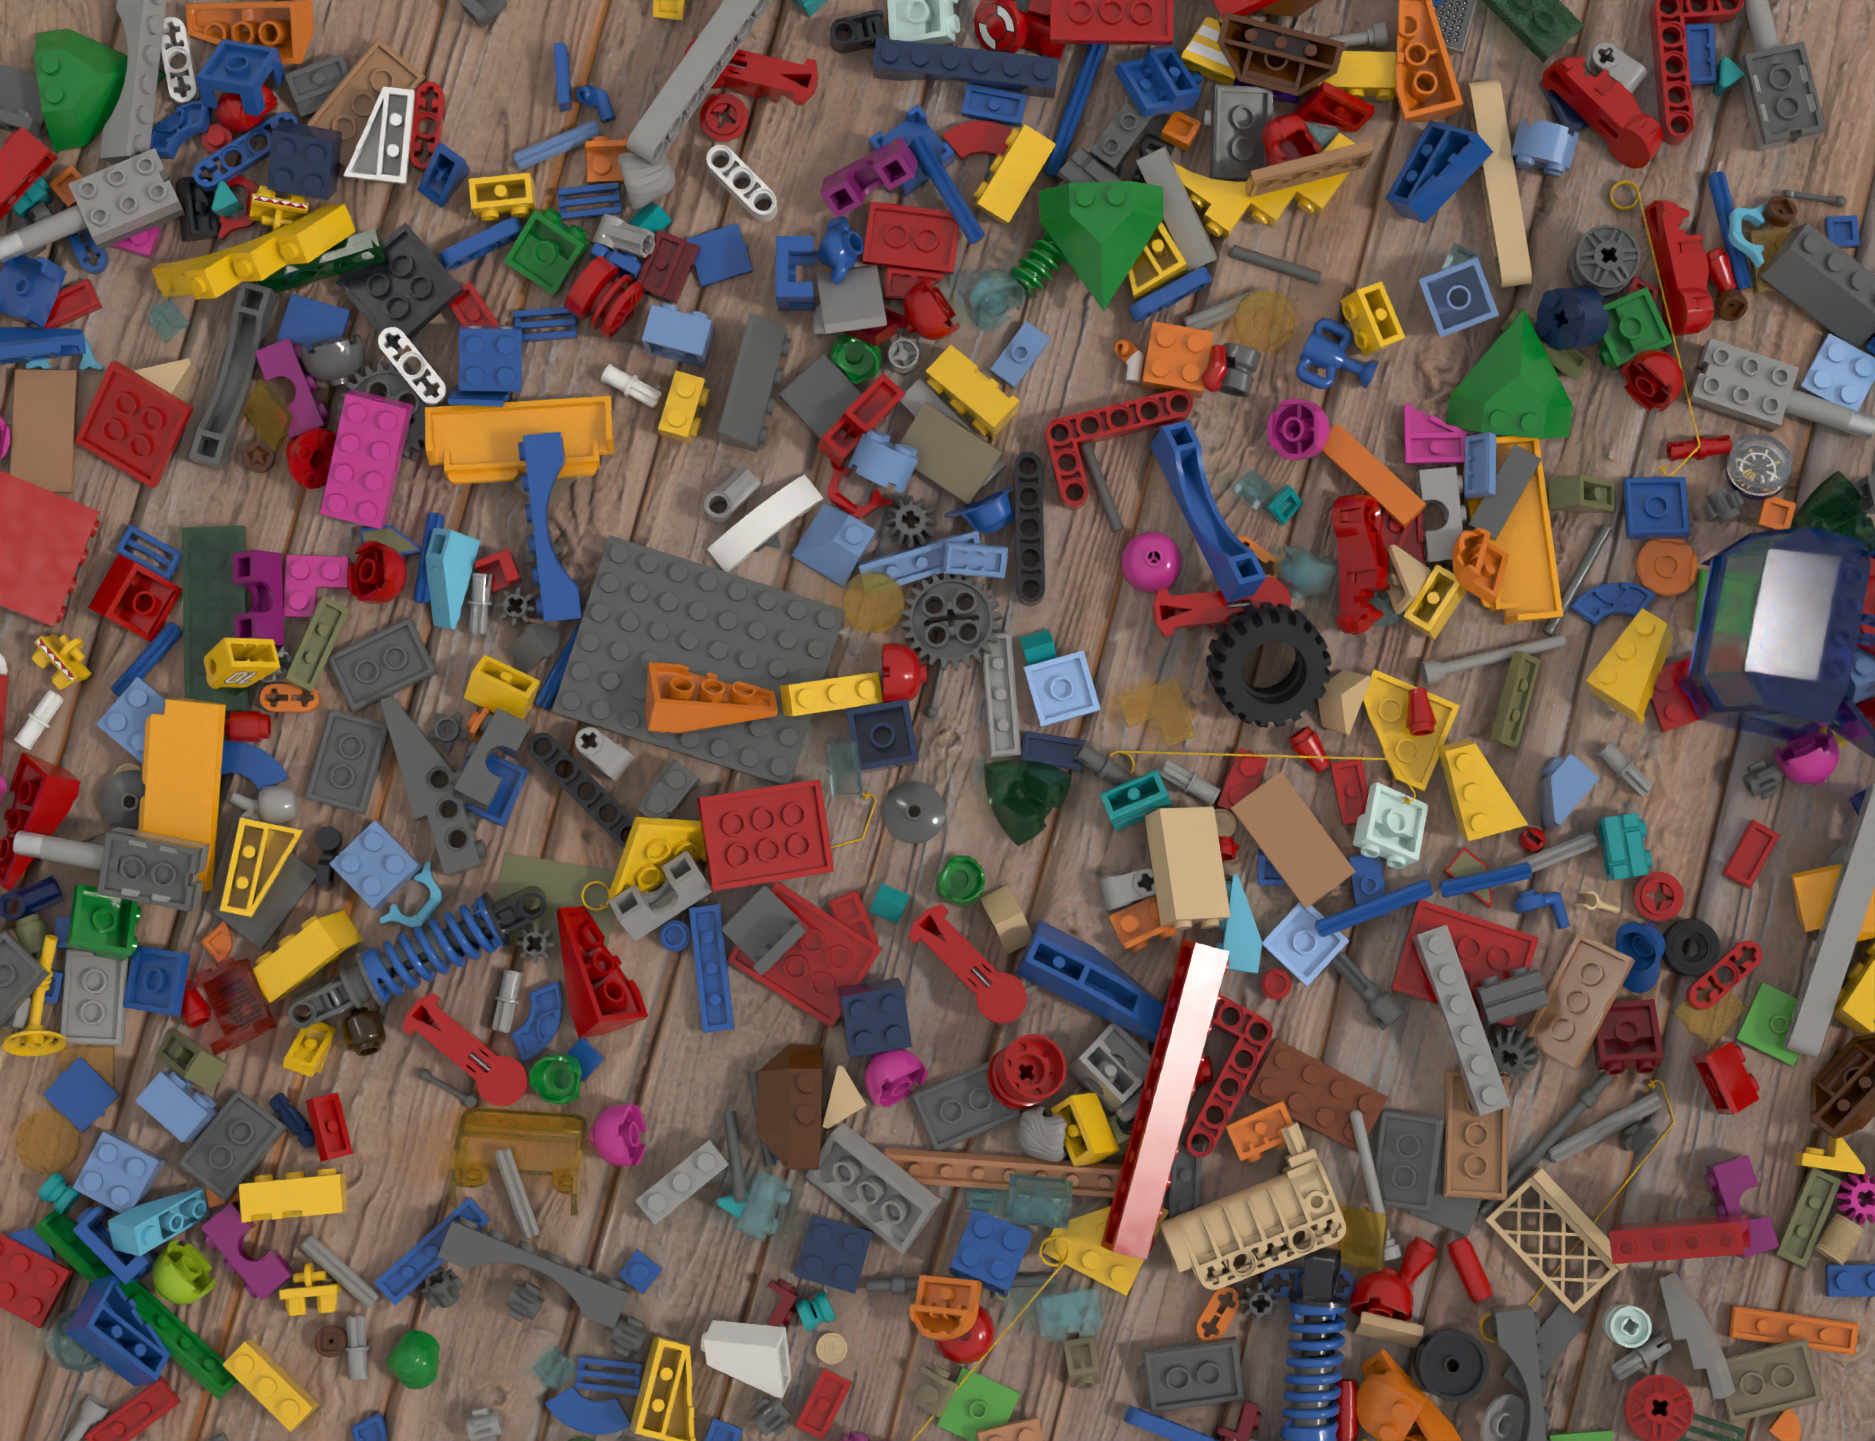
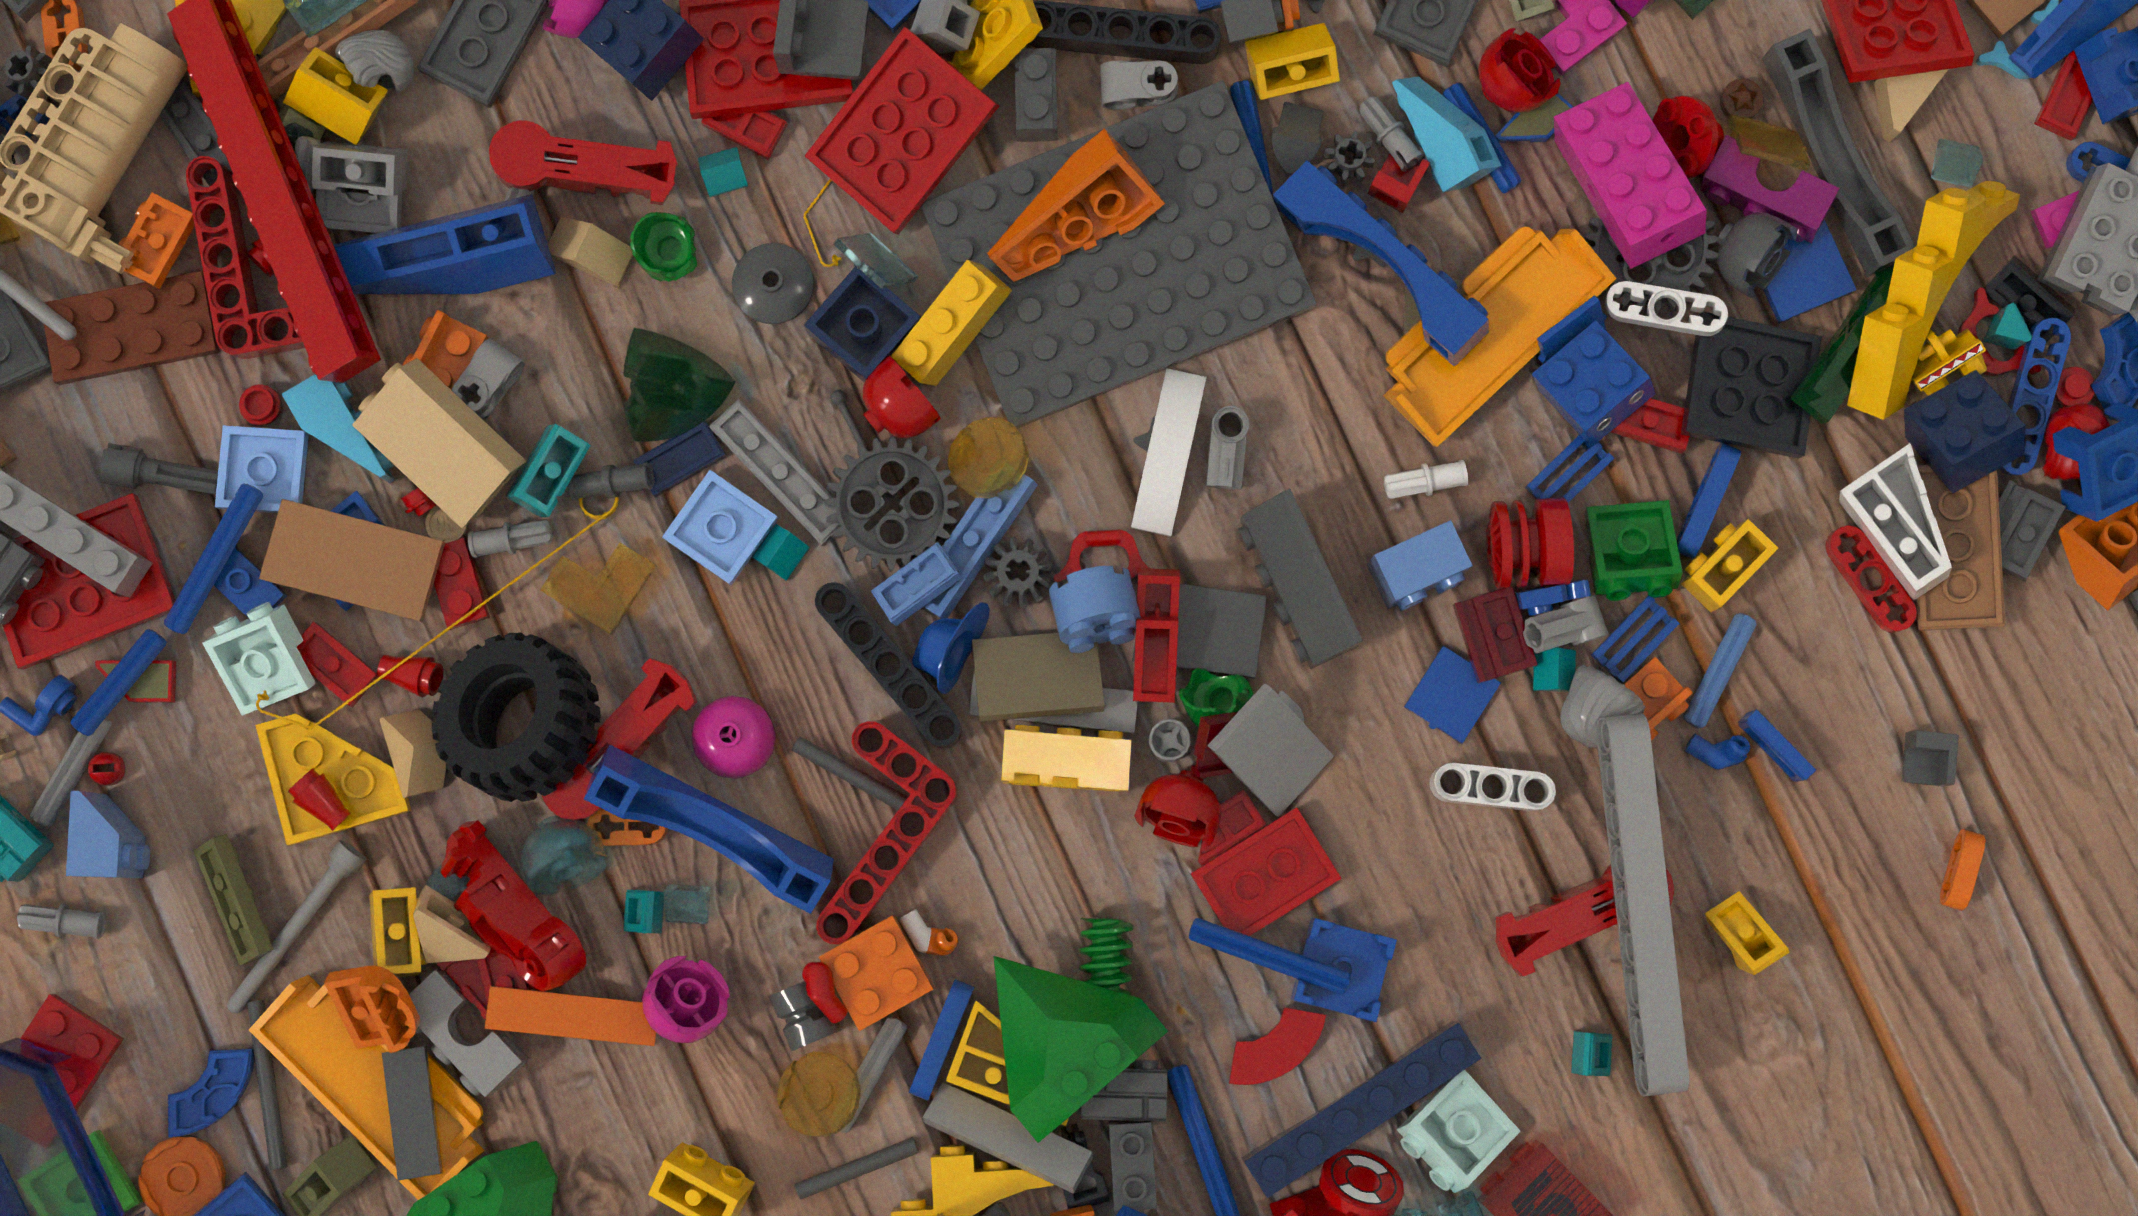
camera: 145 degrees right, 0 degrees up
(443, 175) = (1809, 539): blue slope -> none
(683, 407) = (1353, 499): yellow brick -> none
(718, 105) = (1588, 854): red gear -> none
(794, 252) = (1364, 725): blue panel -> none
(834, 544) = (1079, 487): medium blue slope -> none
(839, 248) = (1331, 800): blue piece -> none
(860, 29) = (1505, 1057): black piece -> none
(885, 166) = (1376, 872): magenta arch -> none
(991, 297) = (1129, 878): clear light blue cylinder -> none
(994, 105) = (1297, 1093): blue plate -> none
(1013, 173) = (1214, 1032): yellow brick -> none
(1020, 355) = (1049, 845): medium blue plate -> none
(1041, 1066) = (421, 117): red wheel -> none
(1331, 356) = (716, 1112): blue piece -> none
(1431, 440) = (538, 1109): dark pink wing -> none
(1476, 793) = (194, 762): yellow wedge -> none
(1480, 465) = (459, 1119): medium blue plate -> none
(1632, 665) = (130, 1034): yellow wedge -> none

